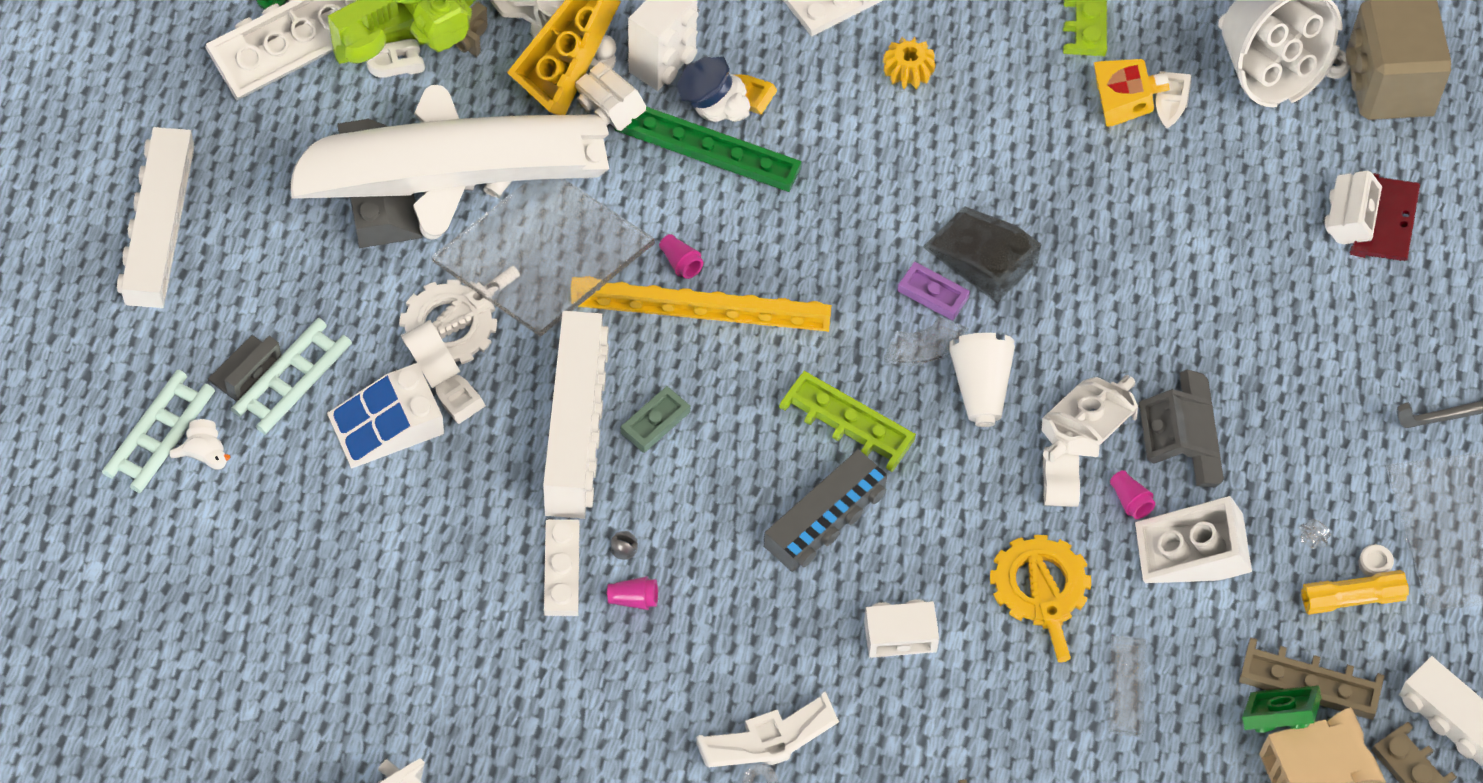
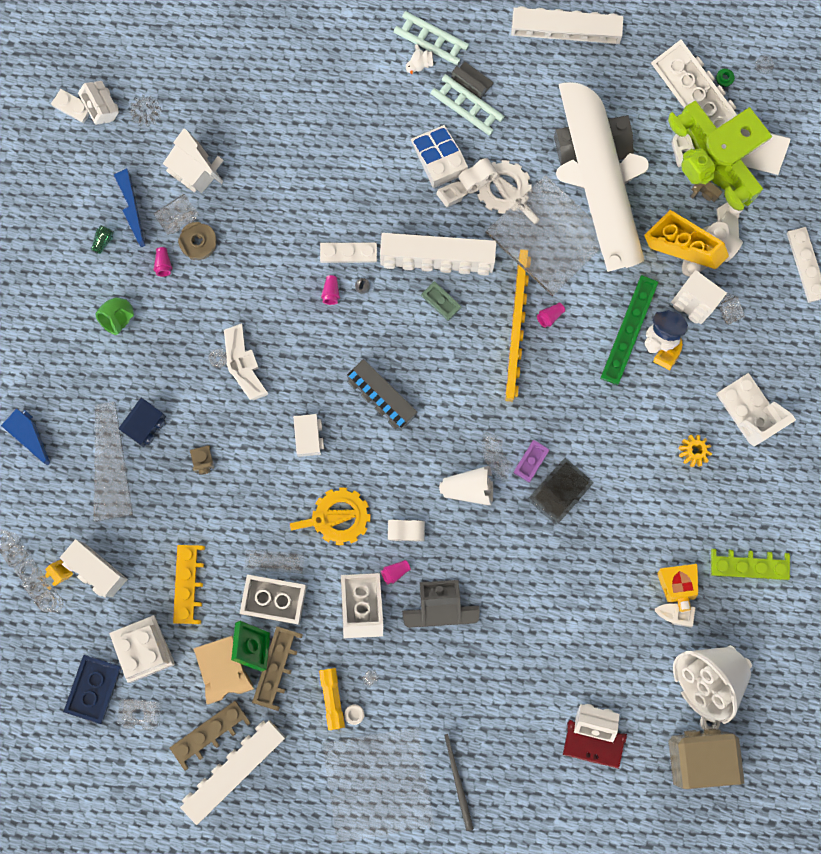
camera: 90 degrees right, 20 degrees up
(609, 96) = (656, 270): white brick -> none
(849, 418) = (443, 410): lime hinge -> none
(1081, 431) = (429, 542): white plate -> none
(1196, 678) = (273, 599): none -> white brick

